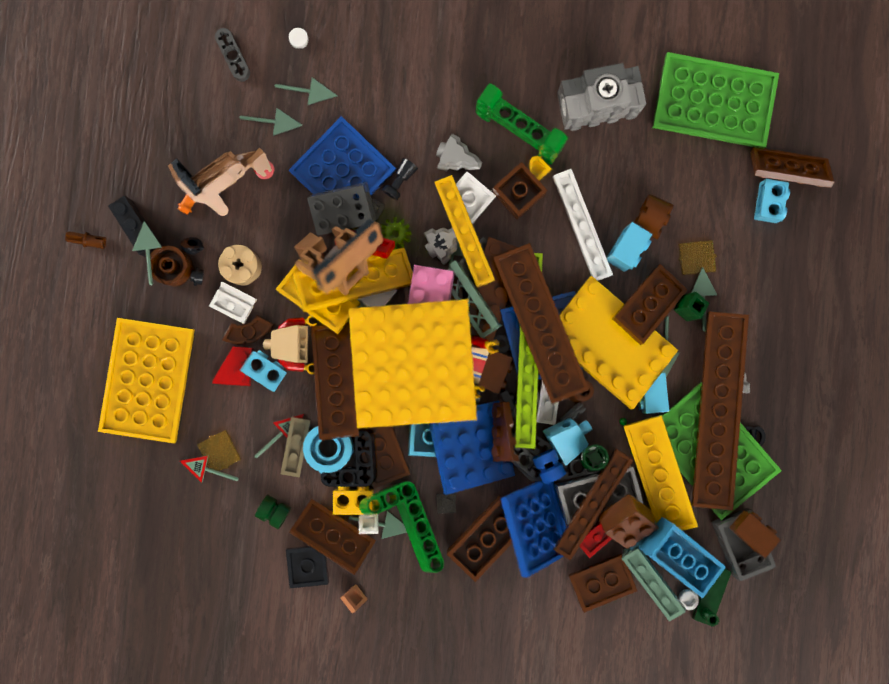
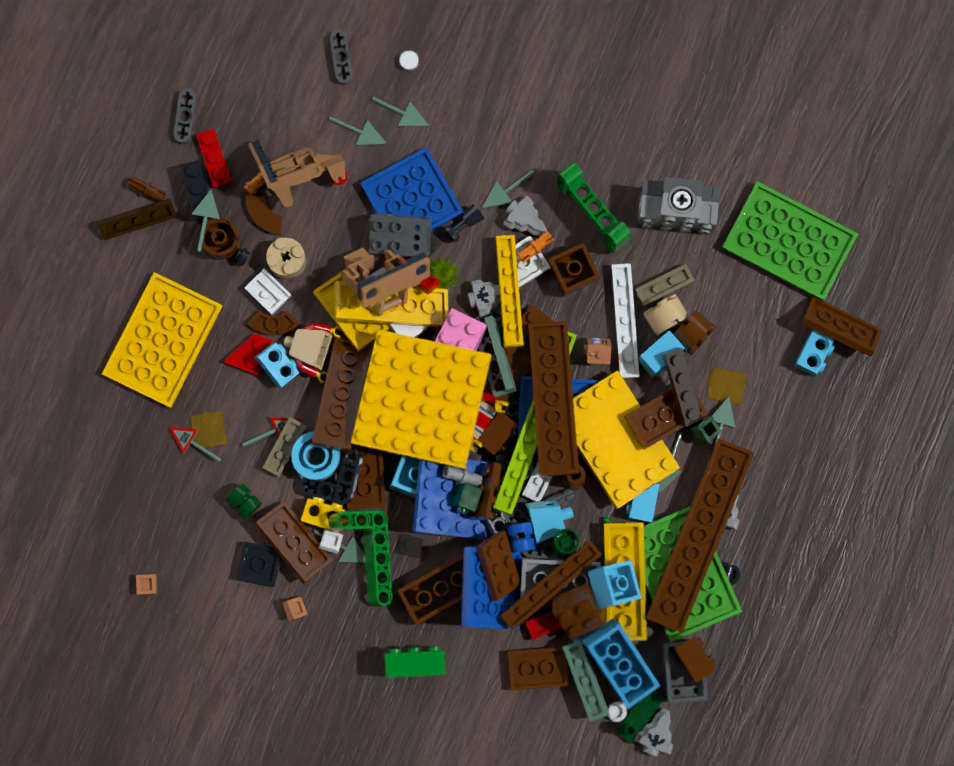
camera: 15 degrees right, 5 degrees down
(85, 271) = (137, 219): none -> dark brown plate
(94, 151) = (188, 130): none -> dark grey beam
(141, 190) = (214, 158): none -> red plate
(192, 245) = (246, 225): black animal -> none
(205, 231) = (263, 216): none -> reddish brown tile
(205, 619) = (146, 584): none -> nougat plate
(425, 142) = (498, 195): none -> sand green piece
(475, 180) = (535, 246): none -> orange pin
(475, 426) = (462, 476): none -> light grey pin
(485, 445) = (466, 498): none -> dark green brick
(485, 617) = (415, 662): none -> green brick
(537, 502) = (498, 565): none -> reddish brown plate
(539, 167) = (600, 253): yellow tile -> none
(566, 262) = (597, 350): none -> nougat head
(609, 179) = (664, 285): none -> dark tan plate
(621, 207) = (666, 315): none -> tan brick
(655, 486) = (614, 584): none -> medium azure brick
(660, 272) = (682, 386): none -> dark brown plate
(733, 611) = (656, 735): none -> light grey rock

